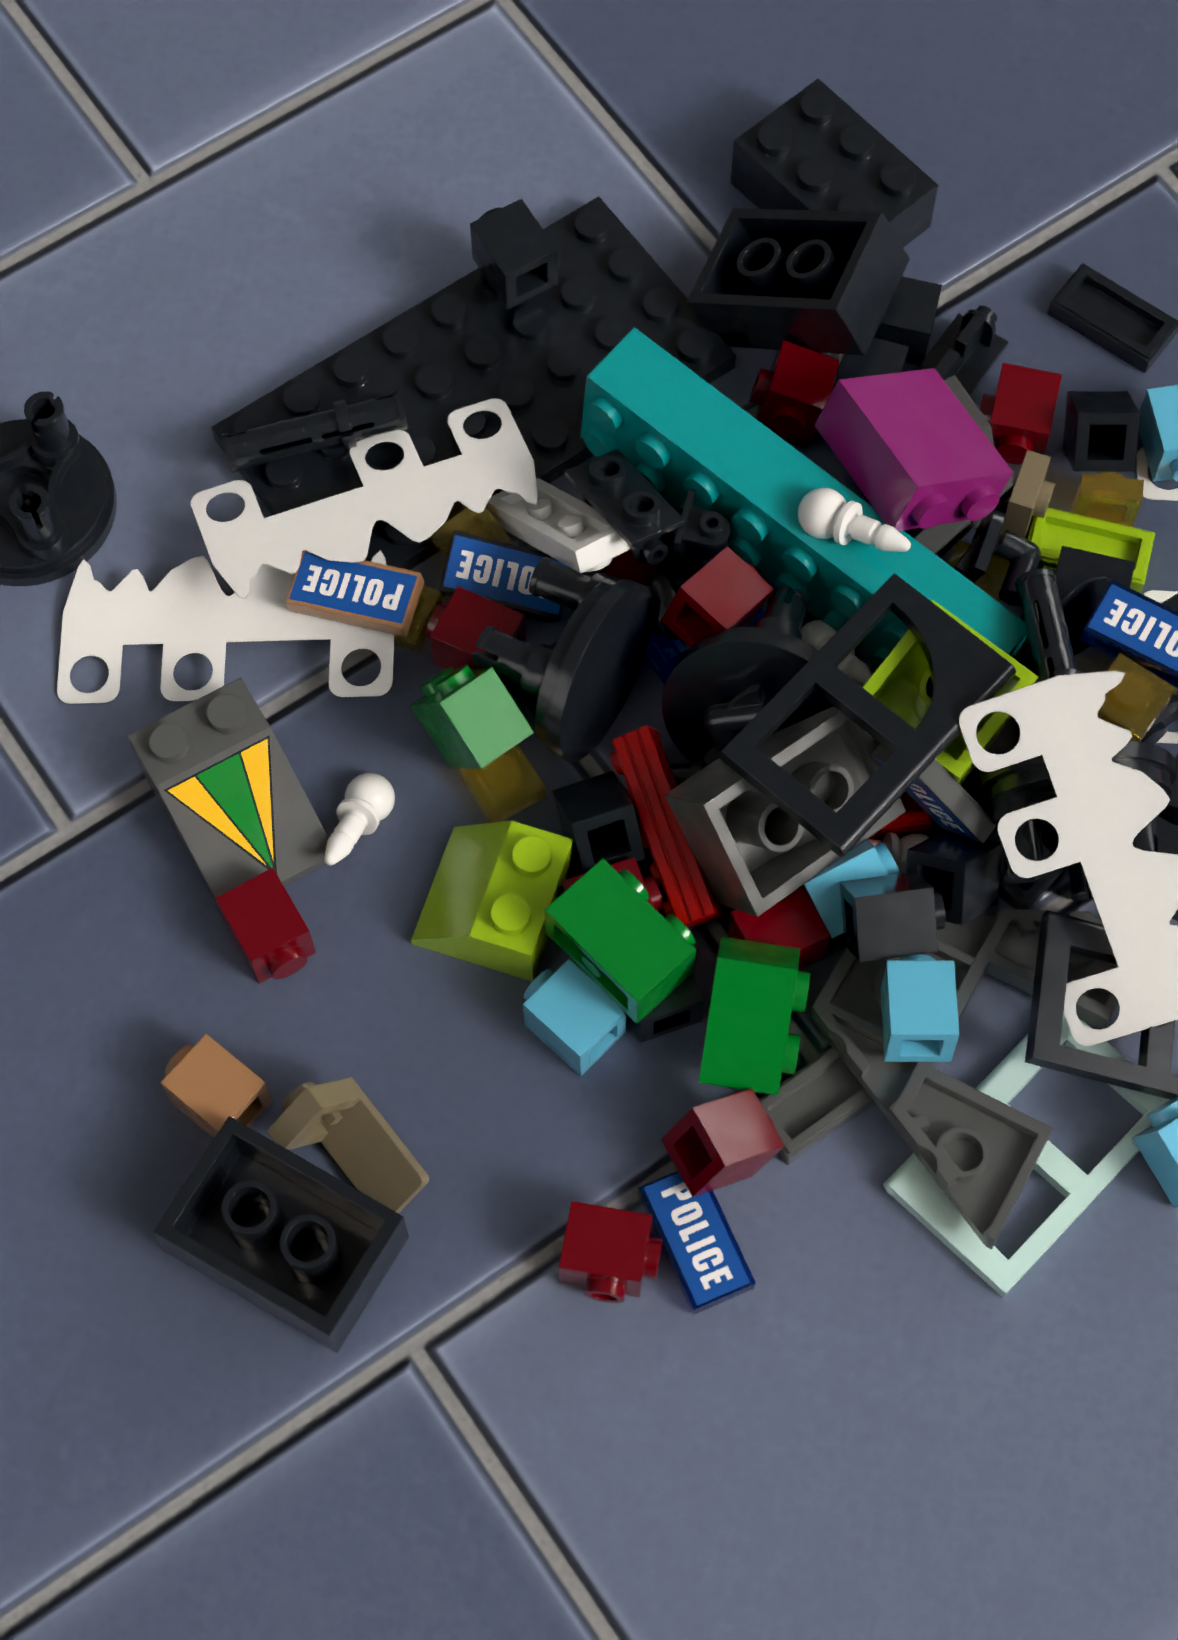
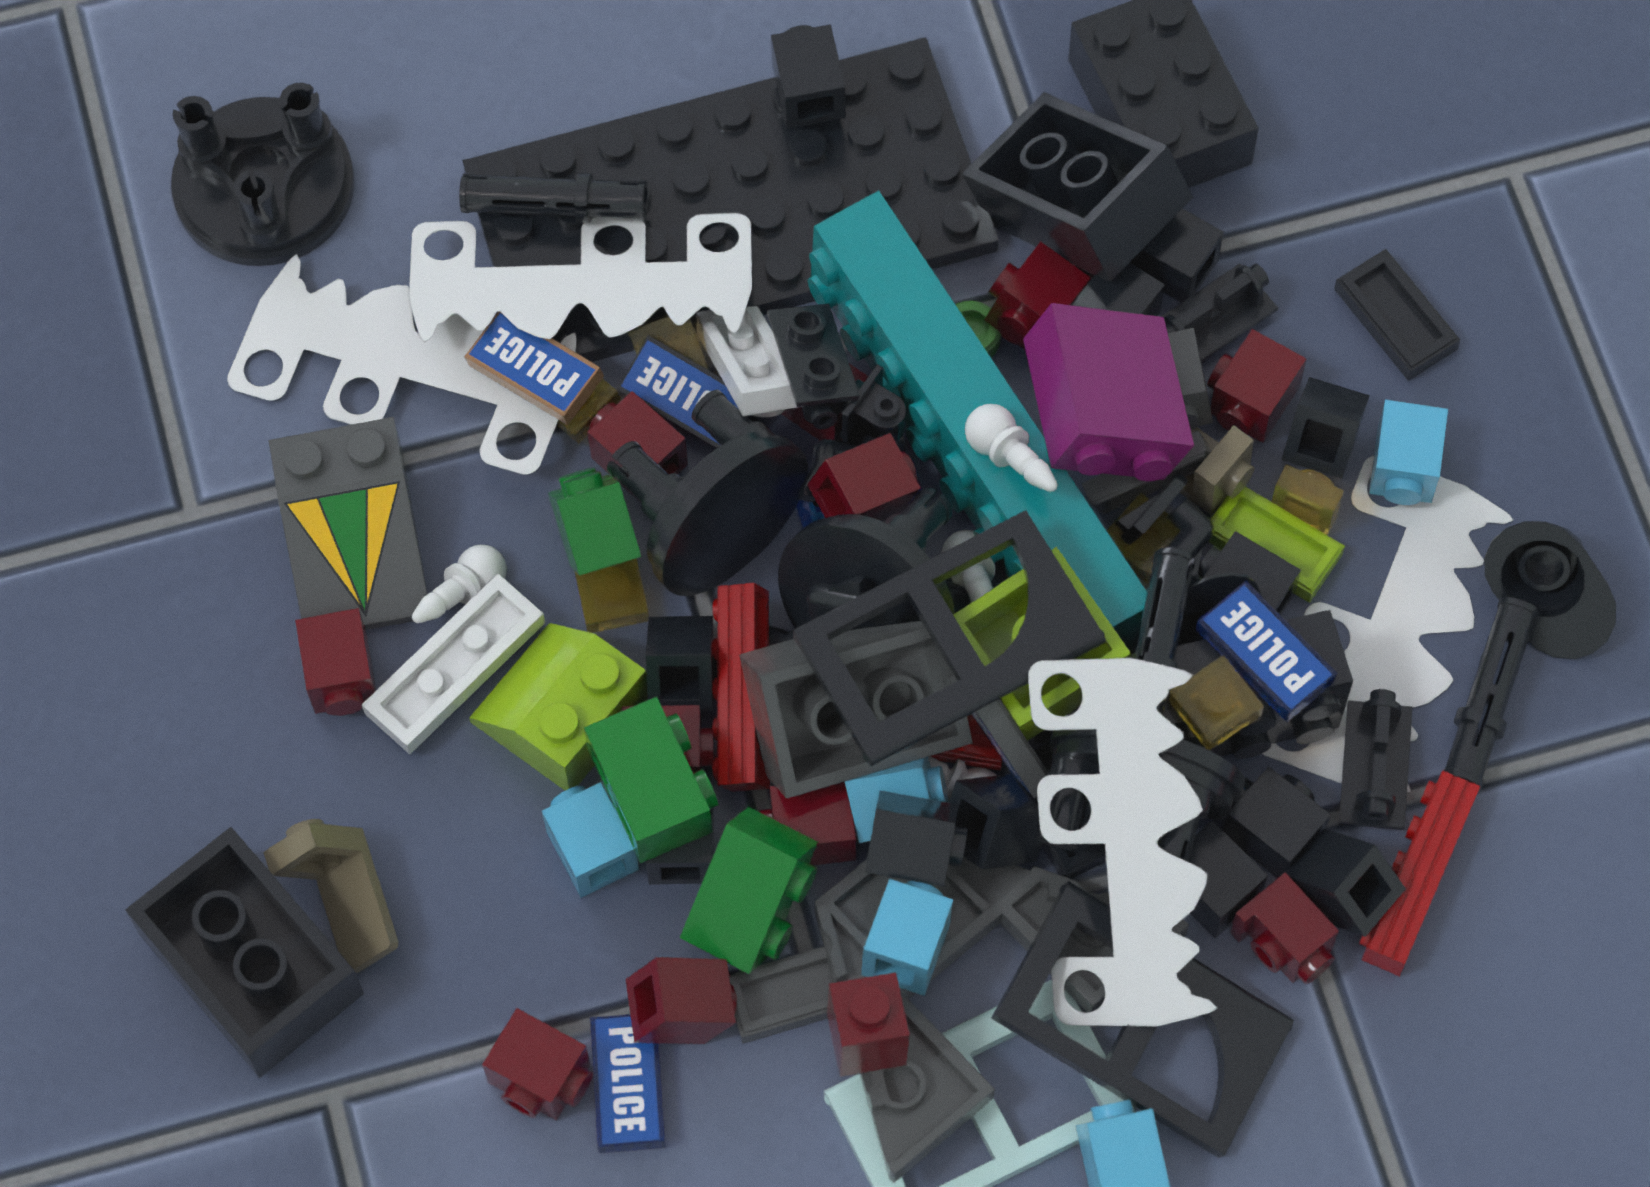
camera: 20 degrees right, 0 degrees up
(213, 1085) = (235, 796): medium nougat brick -> none
(378, 894) = (453, 663): none -> white plate
(919, 1105) = (868, 1024): none -> dark red brick

